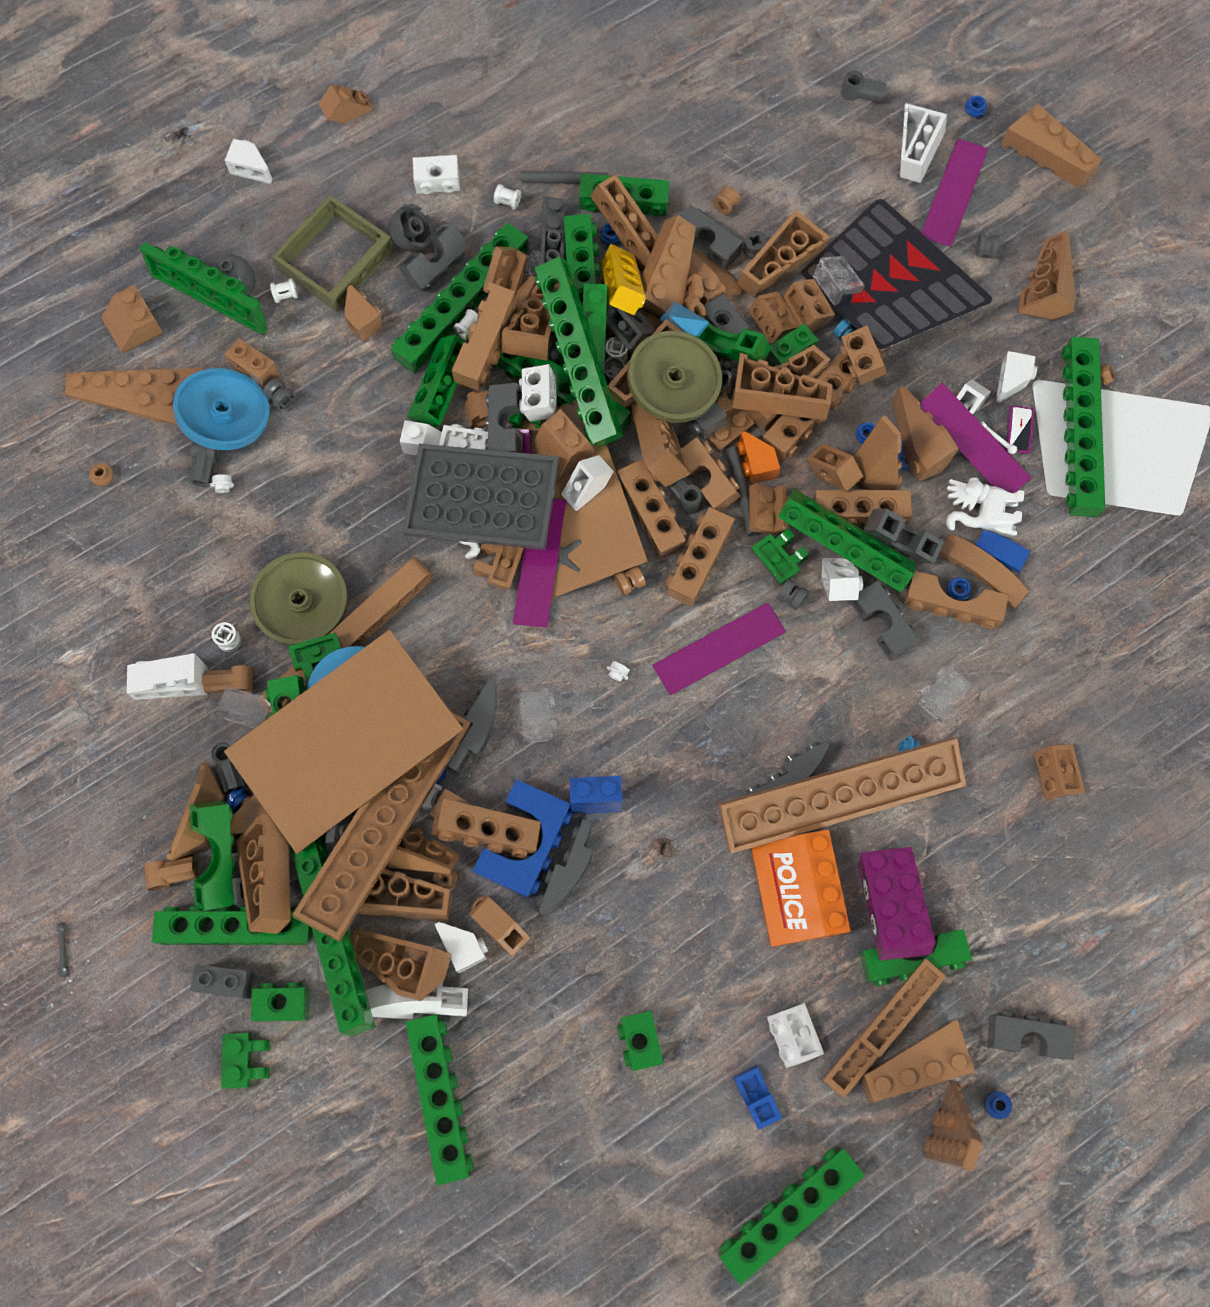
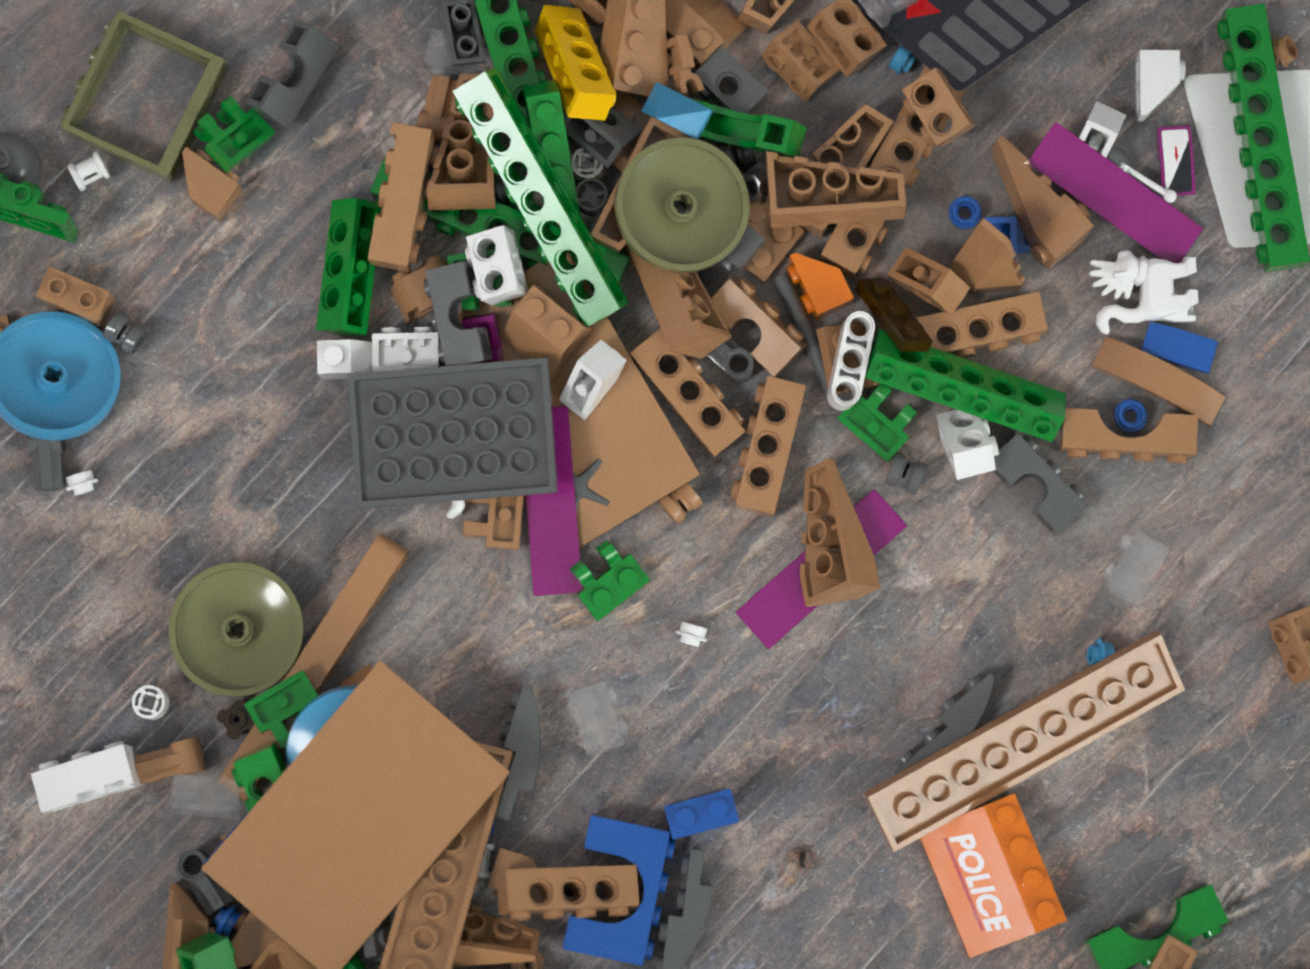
camera: 10 degrees left, 10 degrees up
(276, 659) = (227, 718): none -> dark brown plate
(386, 288) = (239, 140): none -> green plate
(410, 228) = (249, 38): dark grey cylinder -> none
(415, 356) = (302, 234): green brick -> none
(463, 326) = (366, 167): white bush -> none
(506, 268) = (404, 79): medium nougat bracket -> none
(570, 627) = (612, 586): none -> green plate
(733, 636) = (837, 552): none -> medium nougat wedge
(775, 497) = (858, 346): none -> white beam
(790, 345) = (835, 108): green brick -> none
(806, 483) = (893, 315): none -> dark brown plate
(896, 904) = (1118, 871): magenta brick -> none
(914, 543) = (1041, 362): dark grey arch -> none

